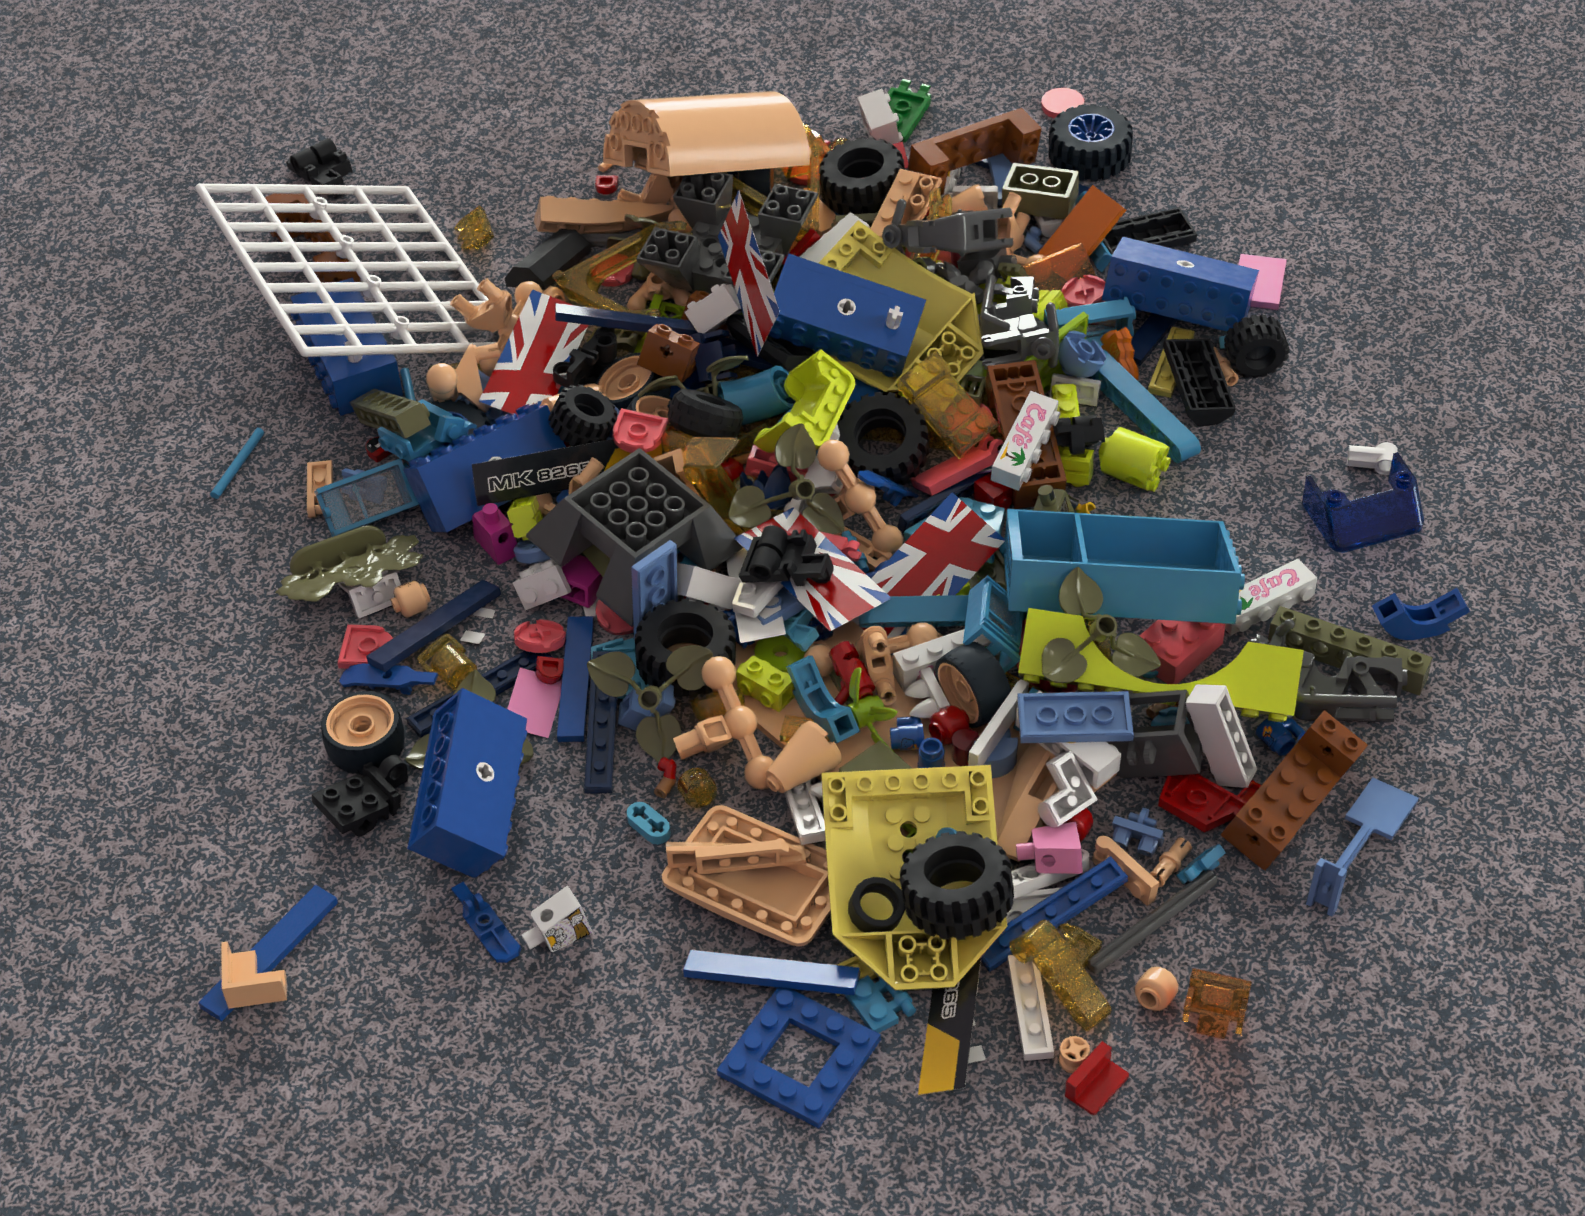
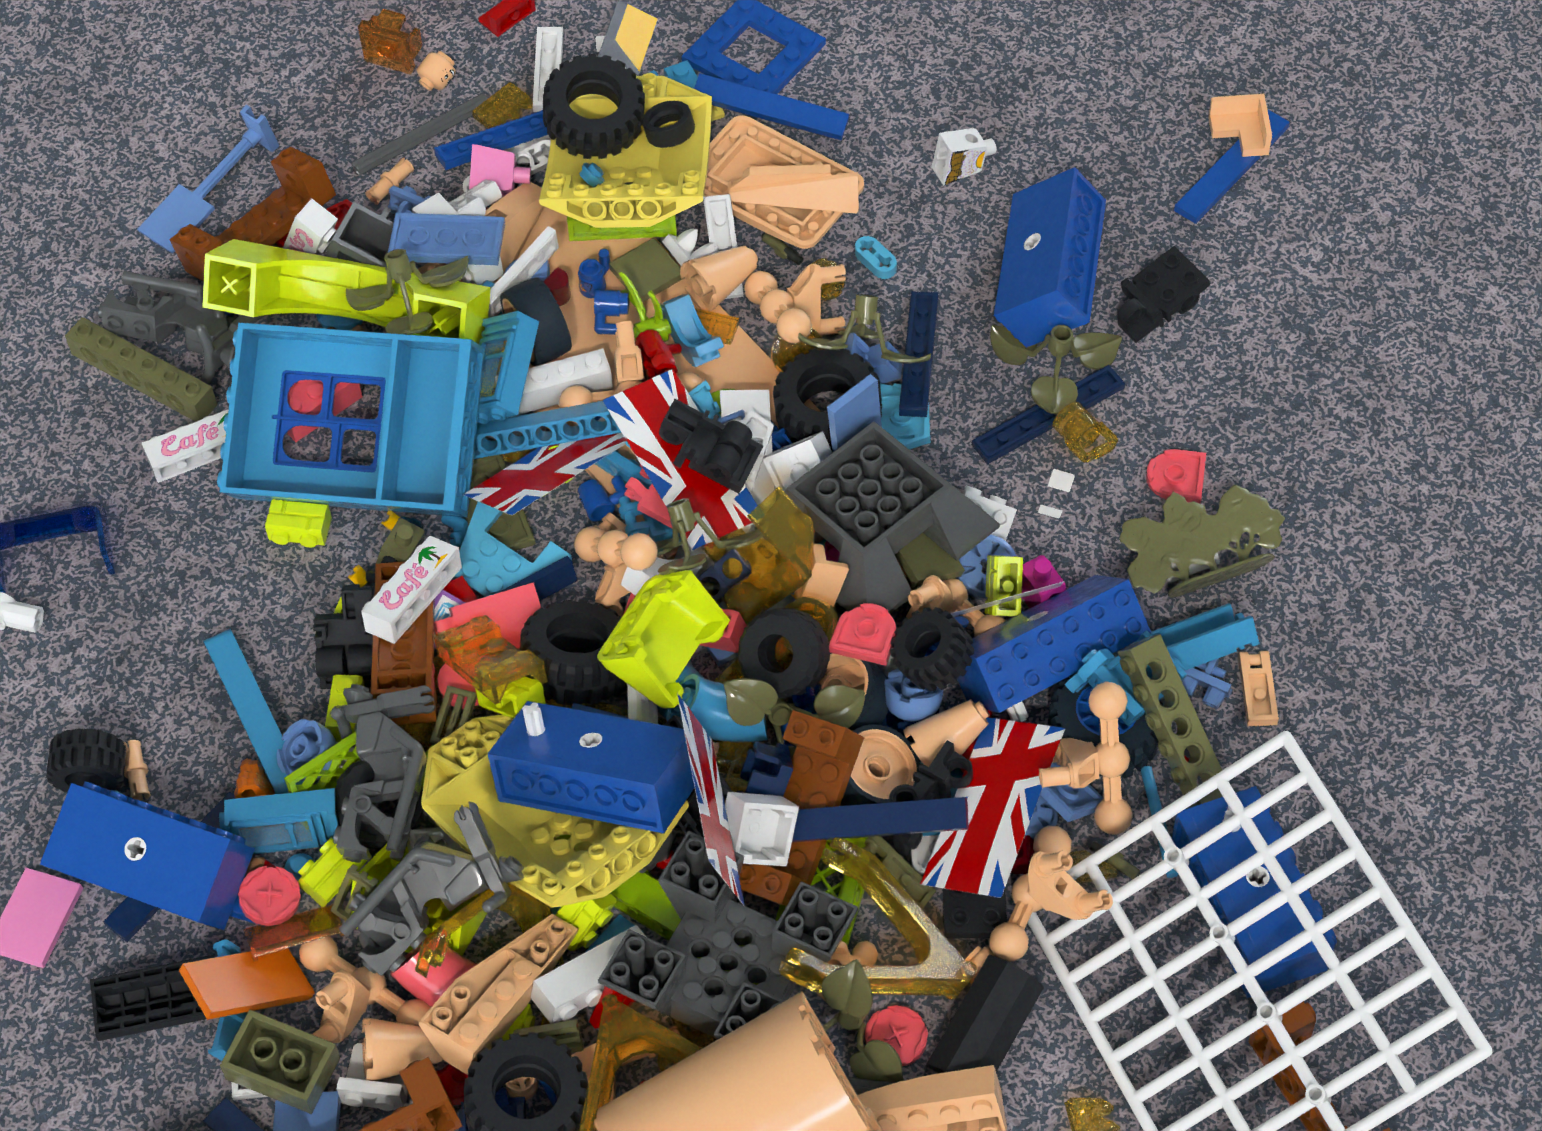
camera: 175 degrees left, 10 degrees up
(237, 463) = (1368, 744): dark azure bar -> none
(362, 730) = (1167, 355): wheel -> none
(399, 677) = (1163, 427): blue piece -> none
(410, 599) = (1130, 508): light nougat head -> none
(433, 625) = (1102, 481): dark blue tile -> none
(491, 934) = (1019, 164): blue piece -> none
(535, 702) = (991, 393): bright pink sticker -> none
(539, 637) = (986, 461): coral tile -> none
(549, 669) = (974, 422): red tile -> none
(575, 679) = (947, 413): blue tile -> none
(669, 777) = (860, 288): arm -> none
(765, 683) = (745, 369): neon yellow brick -> none
(893, 491) = (586, 569): blue piece -> none
(927, 688) = (581, 332): white tile -> none
(947, 722) = (572, 305): red head -> none
(1032, 239) = (310, 1017): medium blue arm -> none
(1062, 972) = (519, 71): clear yellow beam -> none
(1076, 1047) = (520, 28): light nougat wheel -> none
(1134, 458) = (283, 616): neon yellow cylinder -> none
(1140, 882) = (434, 172): light nougat plate -> none
(1162, 379) = (200, 778): light yellow tile -> none
(1199, 380) = (172, 733): black piece -> none
(1205, 861) = (359, 174): dark azure plate -> none
(1420, 621) = (57, 401): blue arch -> none

